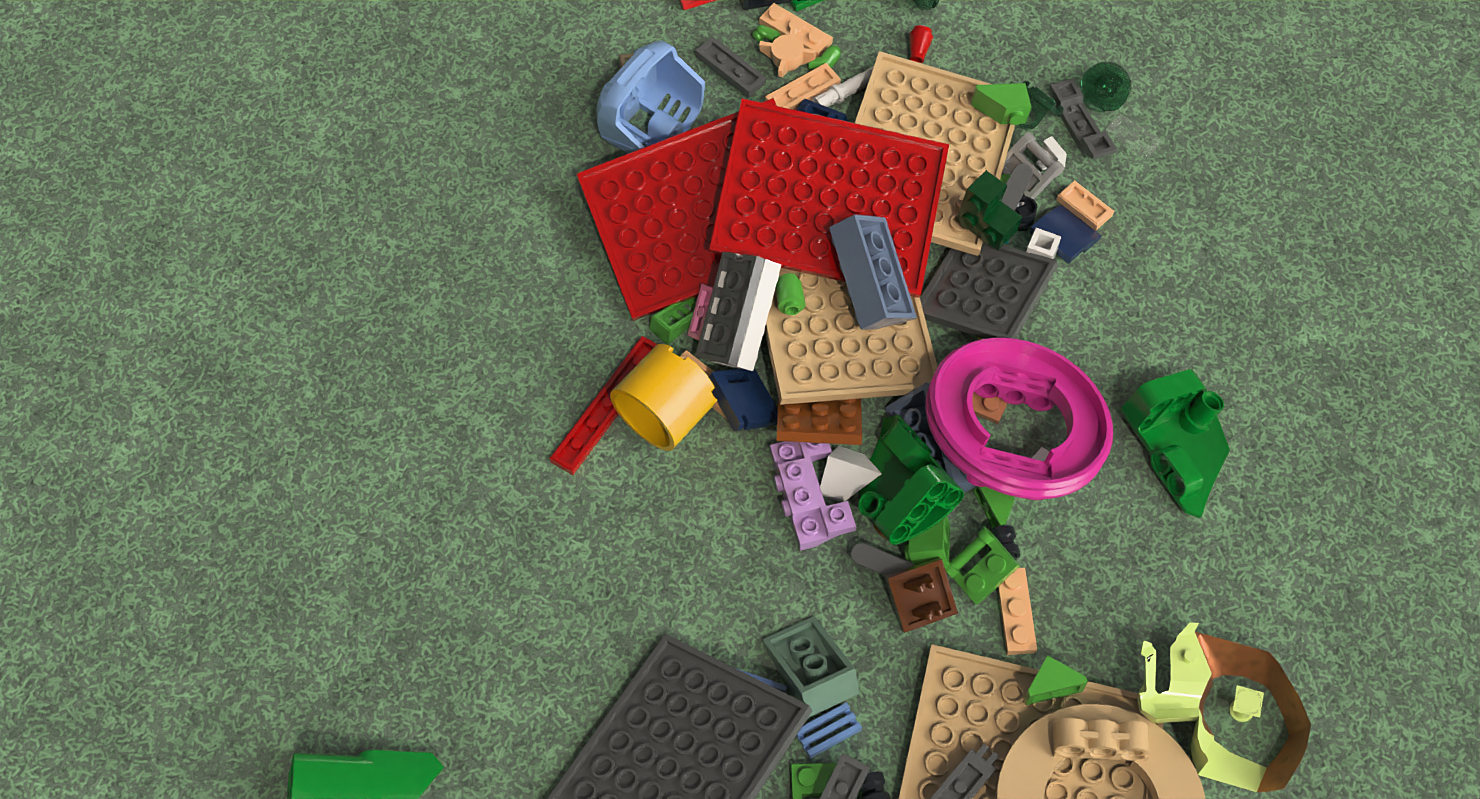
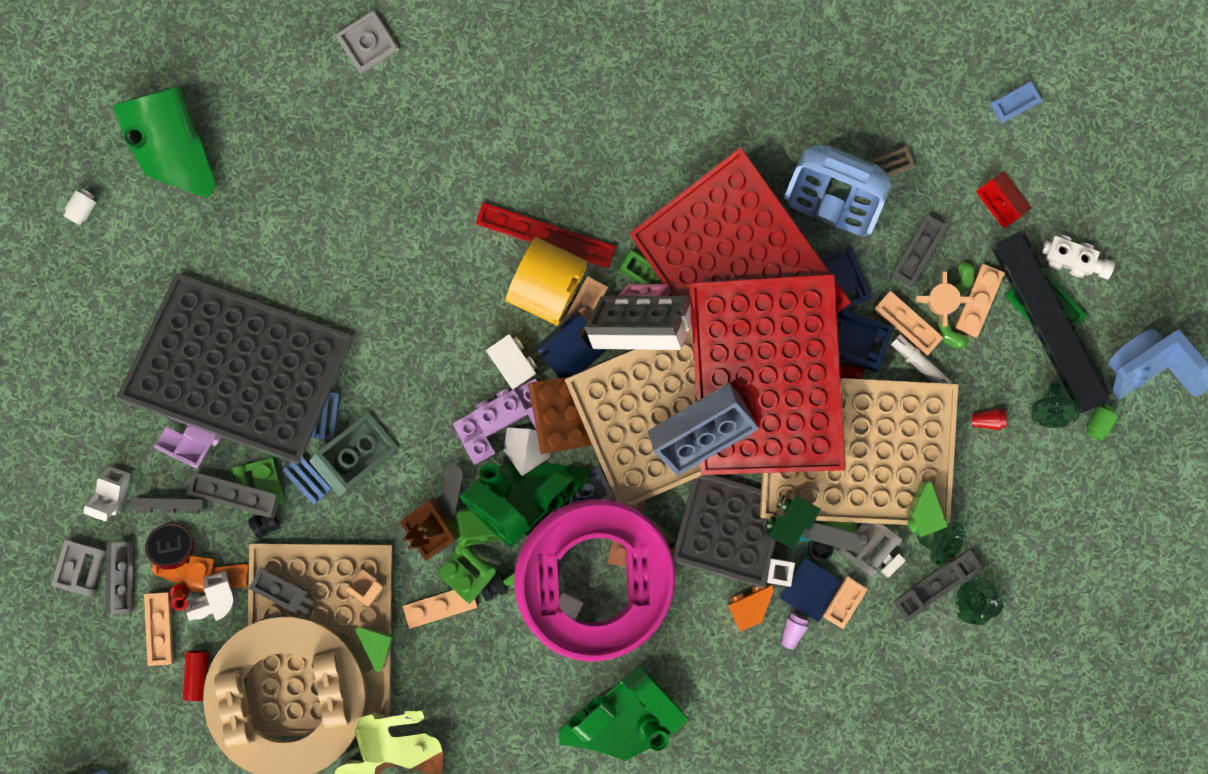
camera: 75 degrees right, 25 degrees up
(318, 543) = (367, 42): none -> light grey tile
(745, 463) = (511, 361): none -> white brick
(790, 294) = (664, 363): bright green brick -> none
(980, 679) = (365, 588): none -> light nougat panel
(1076, 290) = (751, 608): none -> orange slope
(1107, 256) = (794, 630): none -> lavender cone

